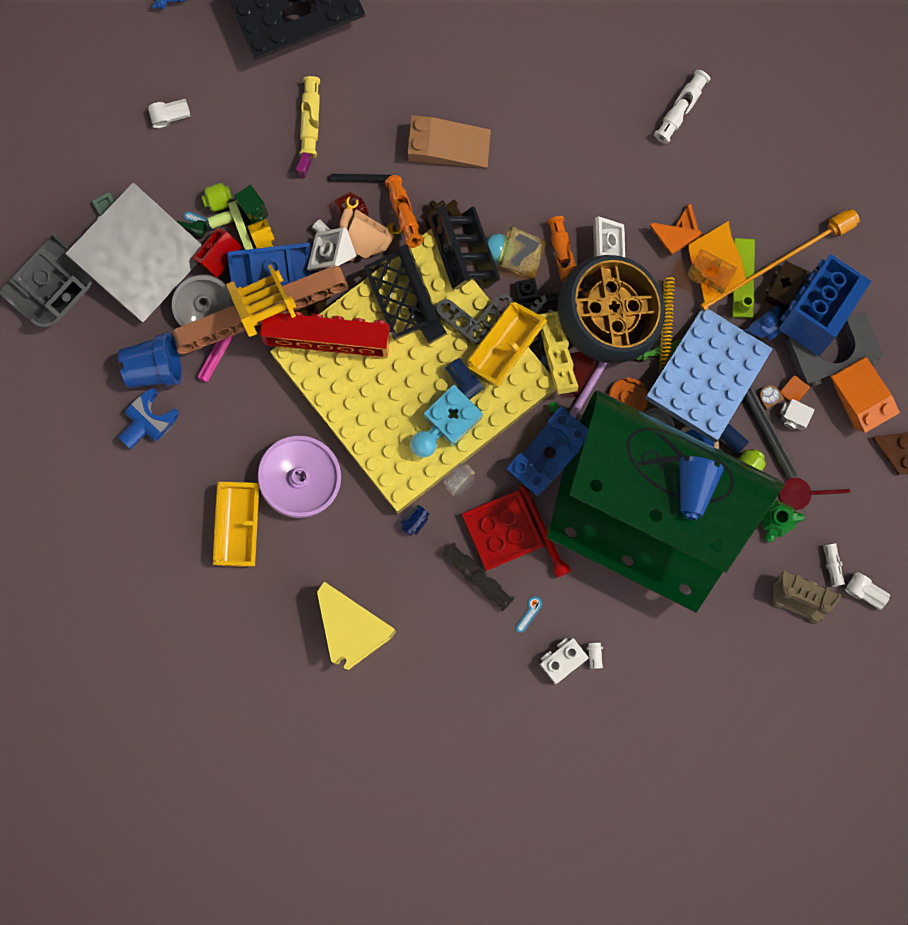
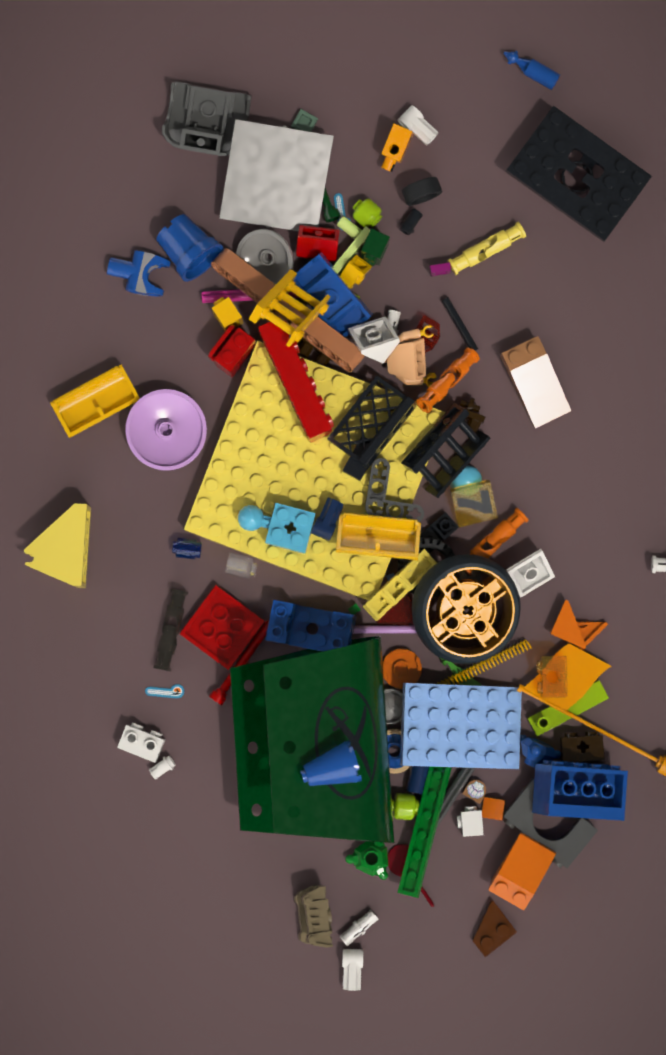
camera: 65 degrees right, 5 degrees up
(170, 133) = (400, 138): none -> light orange torso
(227, 139) = (421, 191): none -> black tyre
(231, 364) = (226, 313): none -> yellow brick
(249, 169) = (410, 222): none -> black pin
(265, 377) = (232, 350): none -> red brick
(783, 458) = (424, 831): none -> green plate

